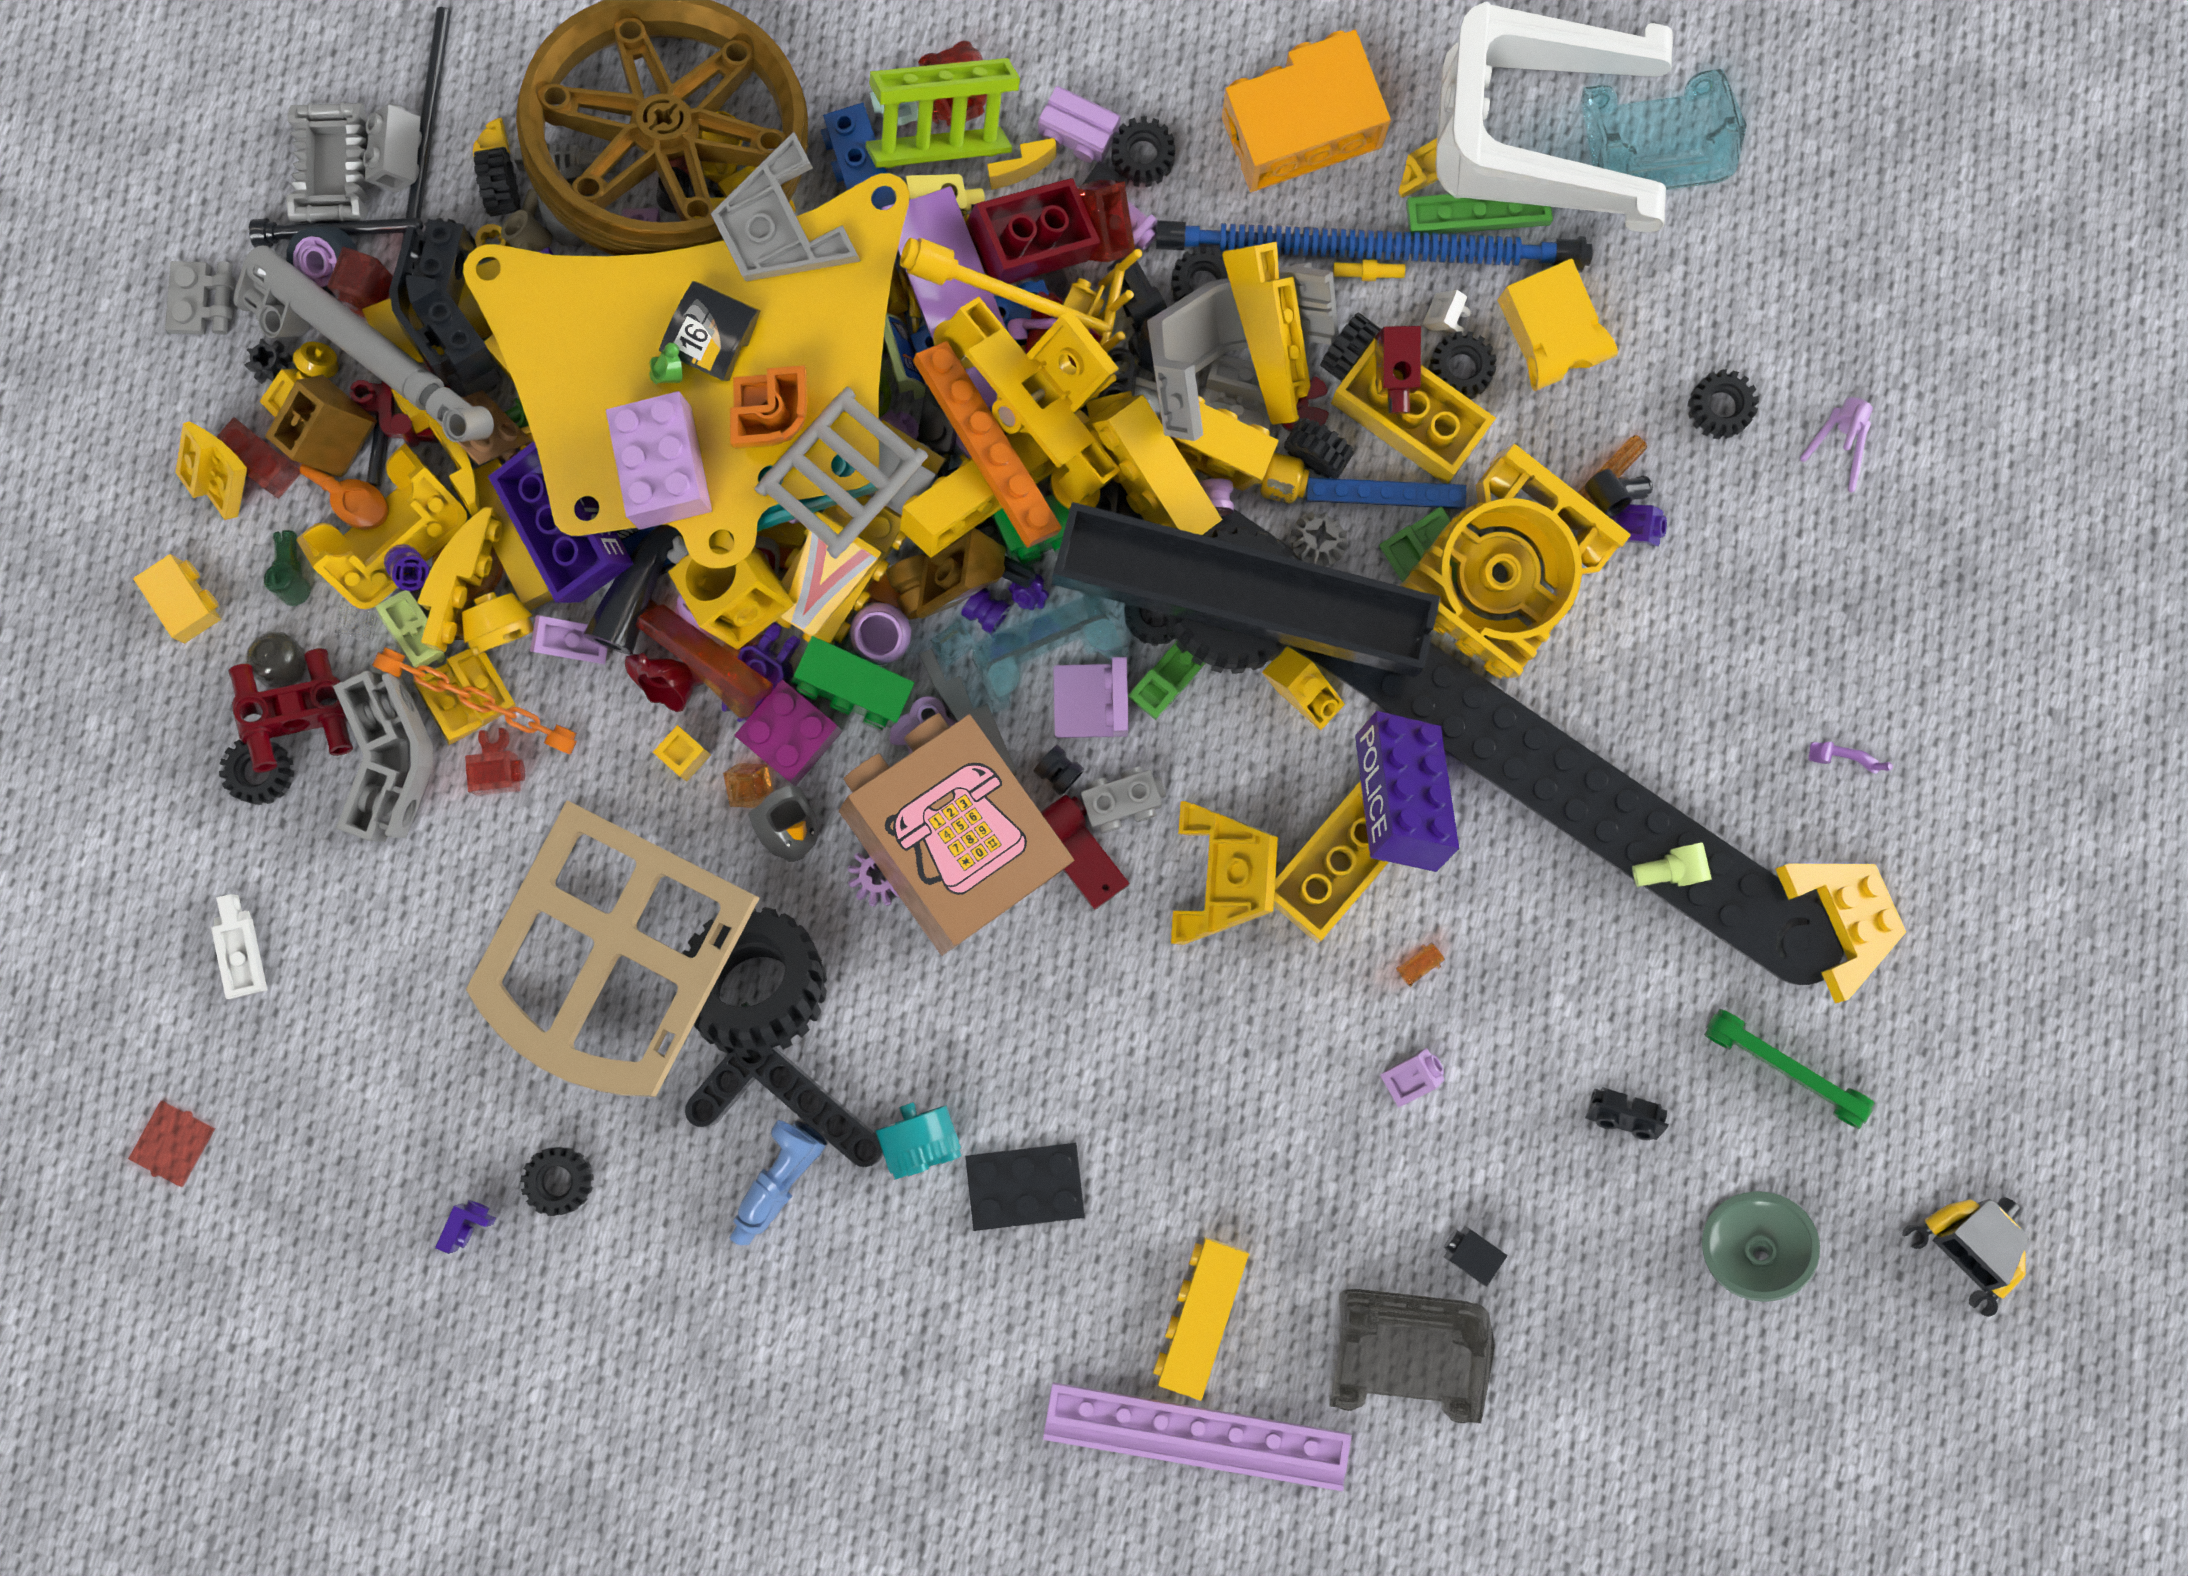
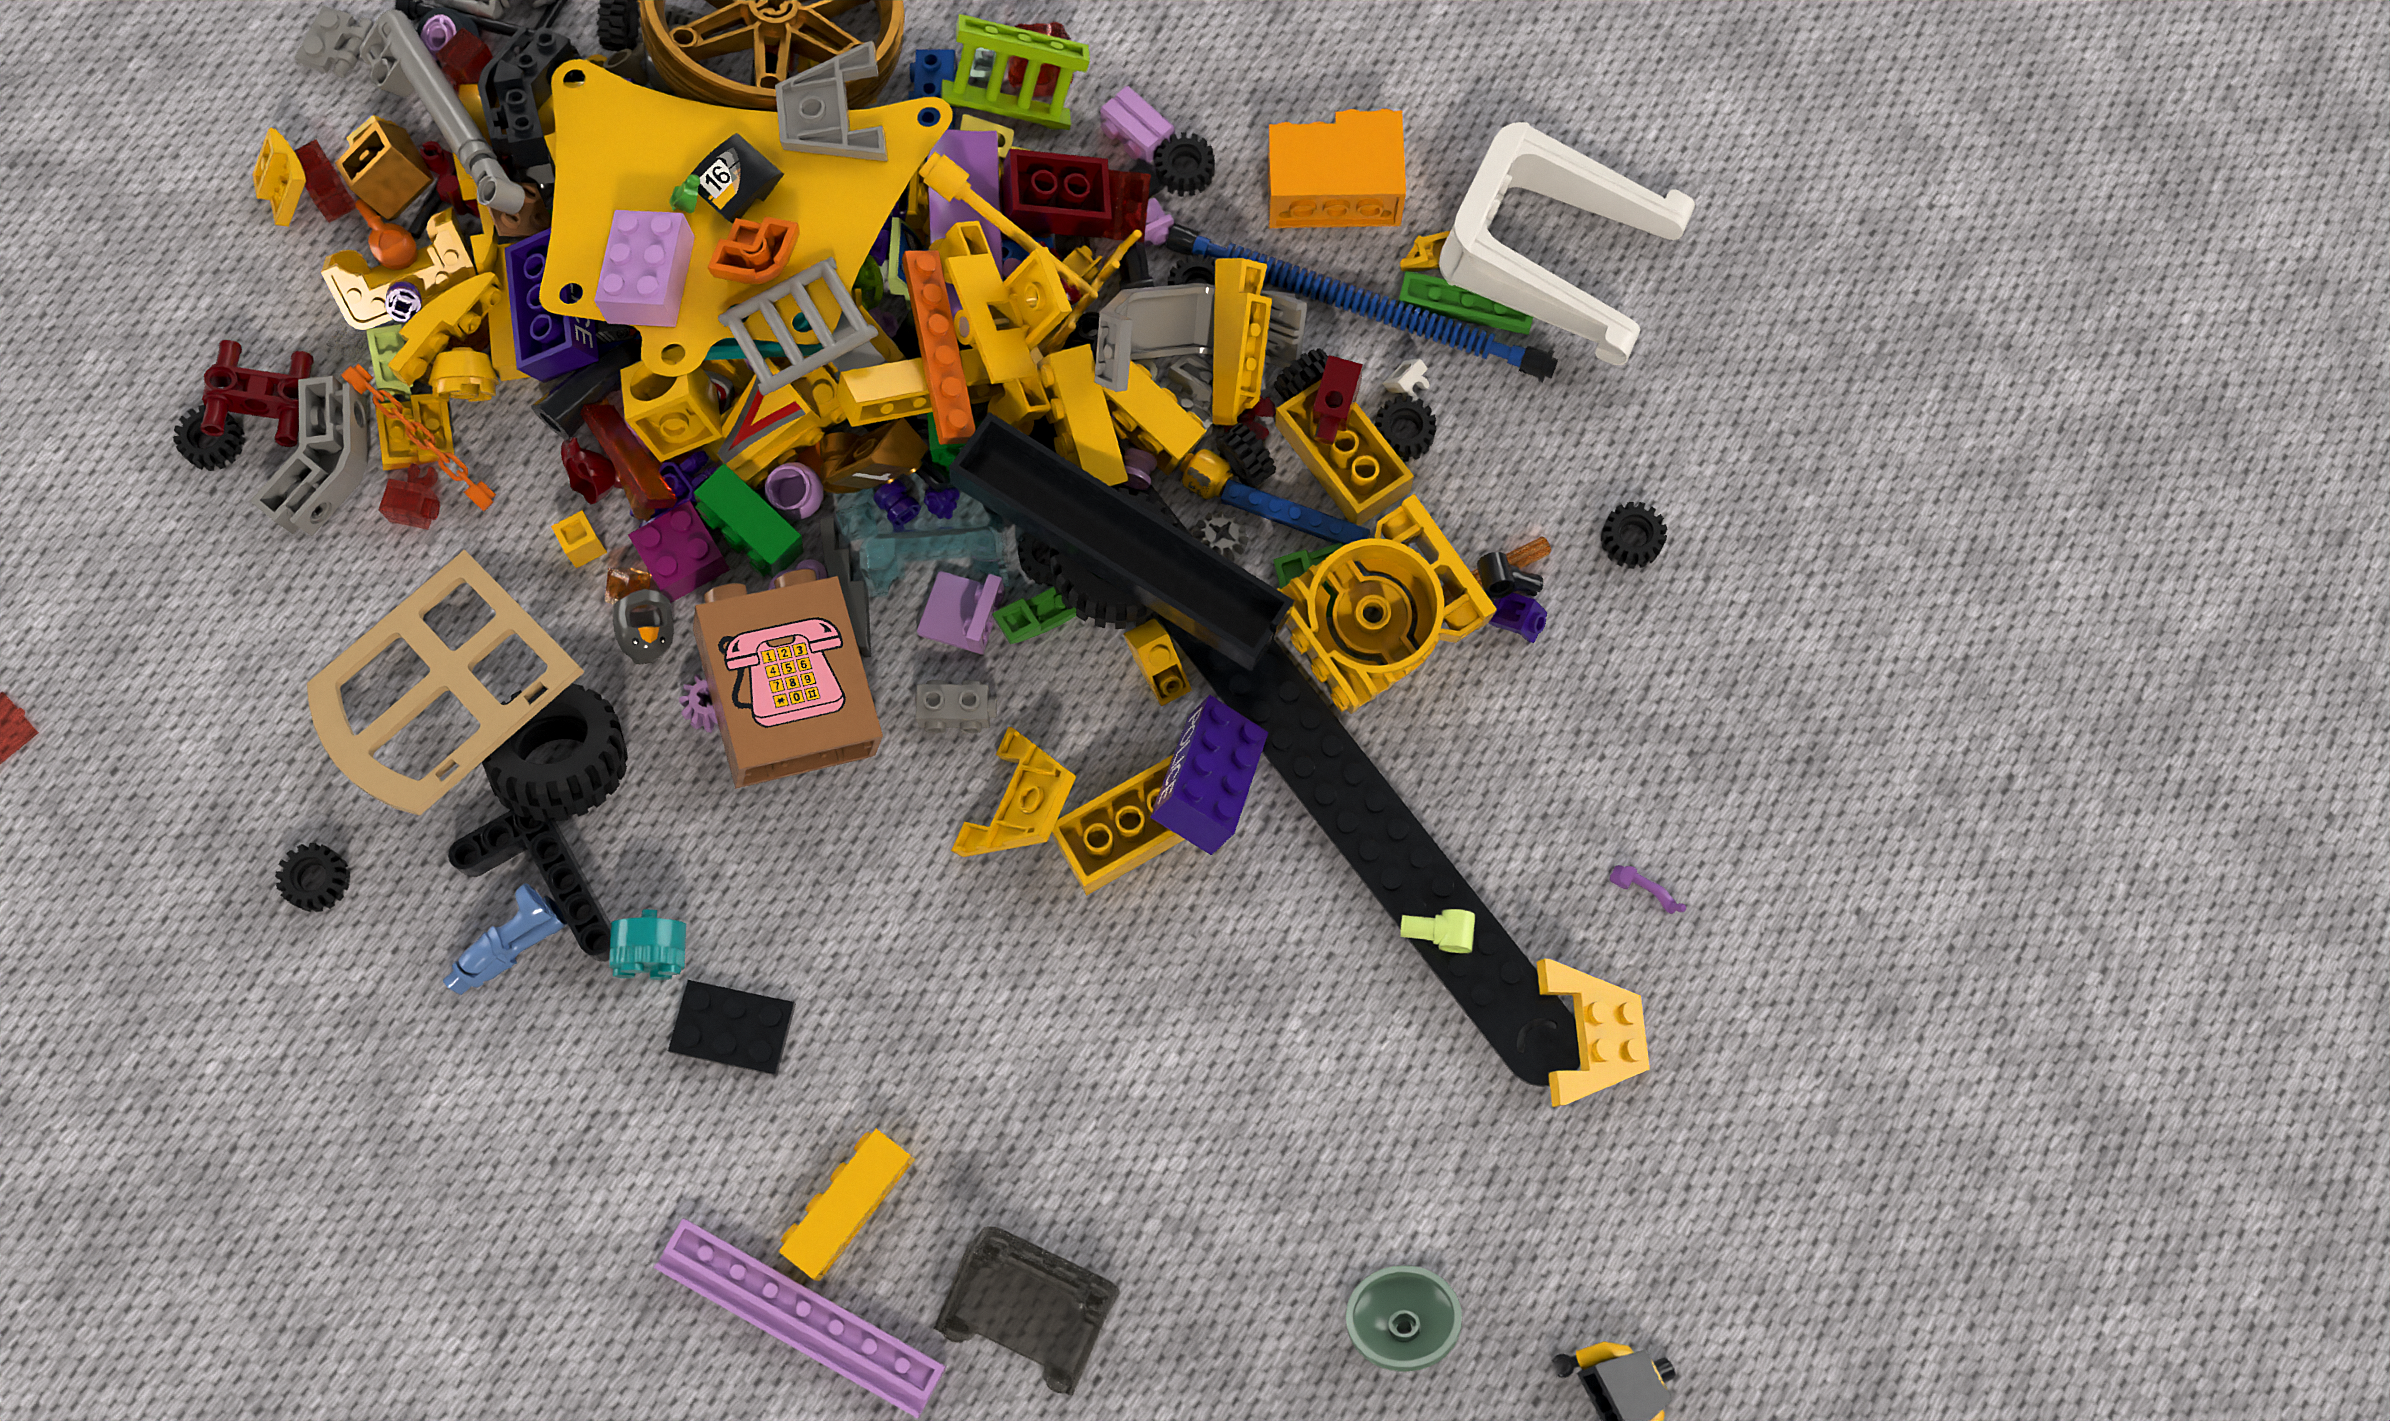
camera: 20 degrees right, 10 degrees down
(178, 598) = (207, 274): yellow brick -> none
(237, 949) = (125, 583): white hinge -> none
(260, 358) = (365, 104): black gear -> none
(276, 659) = (267, 350): clear smoke hair -> none
(286, 569) = (305, 282): clear green pin -> none
(316, 359) = (409, 117): yellow hat -> none
(457, 1228) = (207, 888): dark purple bracket -> none
(565, 640) = (515, 409): lavender plate -> none
(1033, 159) = (1085, 142): yellow slope -> none
(1052, 764) = (907, 662): black wheel -> none
(1092, 869) = (900, 745): dark red door -> none
(1368, 270) = (1350, 322): yellow bar -> none
(1413, 1077) = (1130, 1047): lavender bracket -> none
(1420, 964) = (1175, 945): clear orange pin -> none
(1474, 1255) = (1124, 1232): black brick -> none
(1555, 324) = (1501, 416): yellow piece -> none
(1643, 1120) = (1306, 1144): black hinge -> none
(1668, 139) = (1661, 295): clear light blue windscreen -> none
(1850, 1105) = (1540, 1216): green piece -> none
(1852, 421) = (1748, 586): lavender plant -> none

